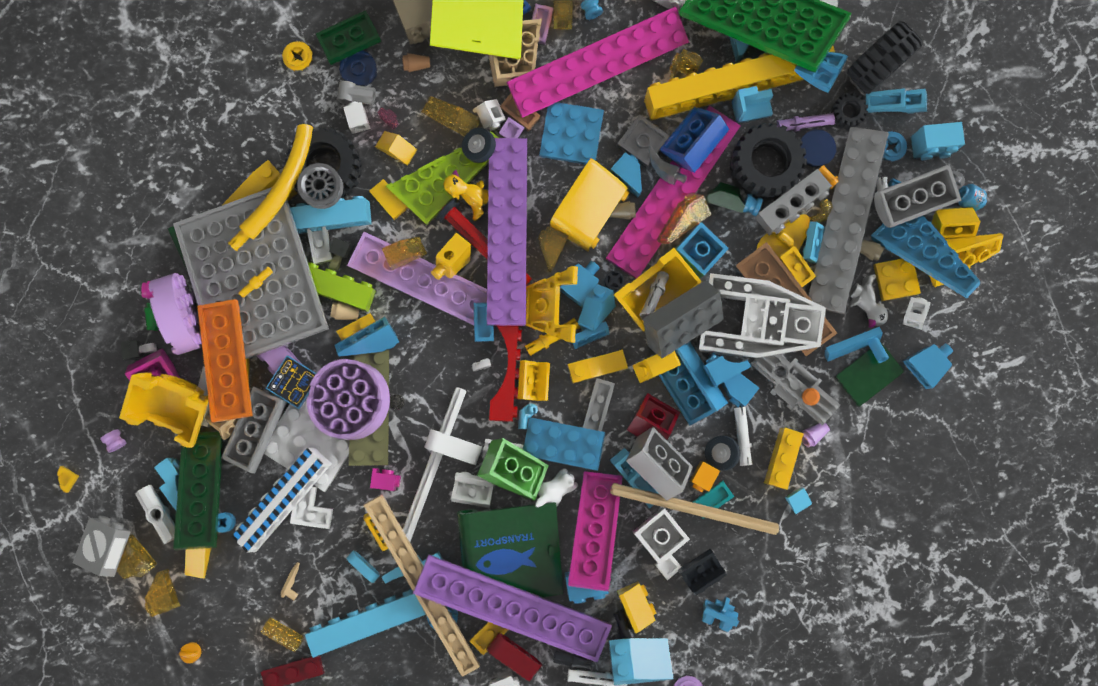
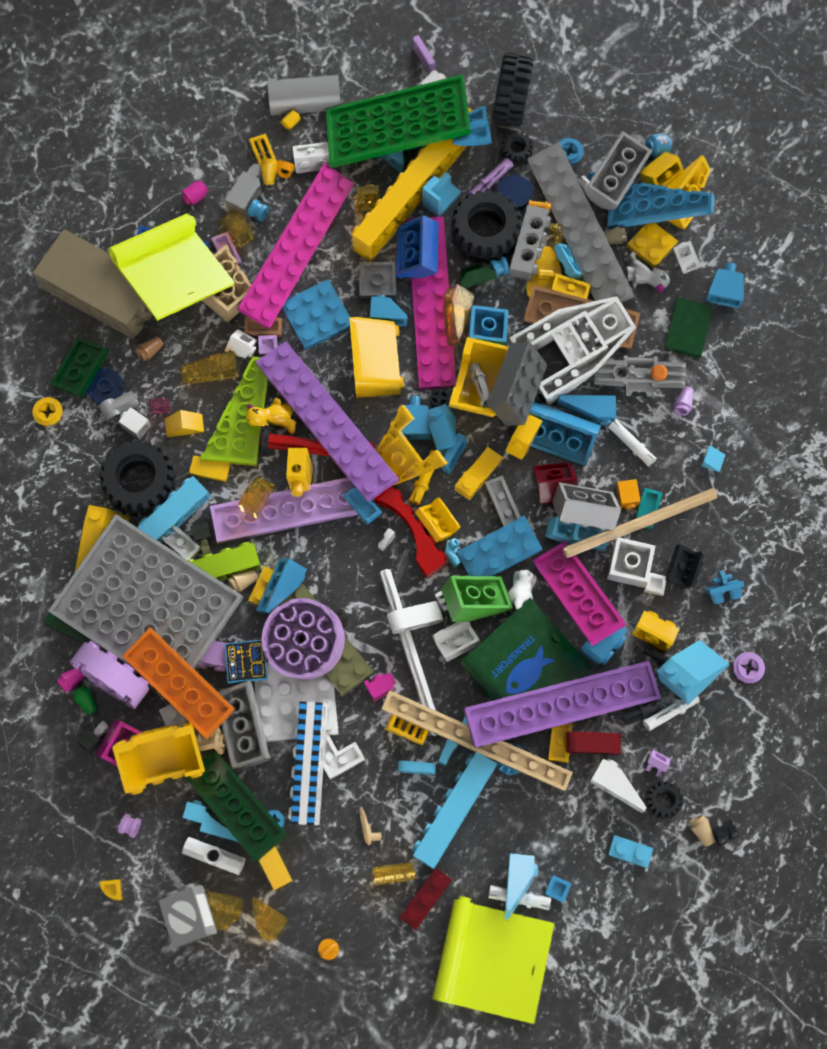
camera: 35 degrees left, 10 degrees down
(255, 282) = (155, 603): yellow bar -> none
(270, 206) = (121, 519): yellow animal -> none
(304, 179) = (140, 477): flat silver wheel -> none
(478, 145) = (252, 372): black wheel -> none
(551, 245) = (369, 409): clear yellow slope -> none
(624, 211) = (405, 341): dark tan cone -> none
(668, 172) = (413, 288): flat silver bar -> none
(721, 370) = (576, 401): dark azure arch -> none
(722, 453) = (627, 465): black wheel -> none
(783, 458) = (676, 435): yellow brick -> none
(870, 338) = (661, 309): dark azure piece -> none
(897, 101) = (546, 115): medium azure slope -> none
(937, 140) = (599, 122): medium azure brick -> none

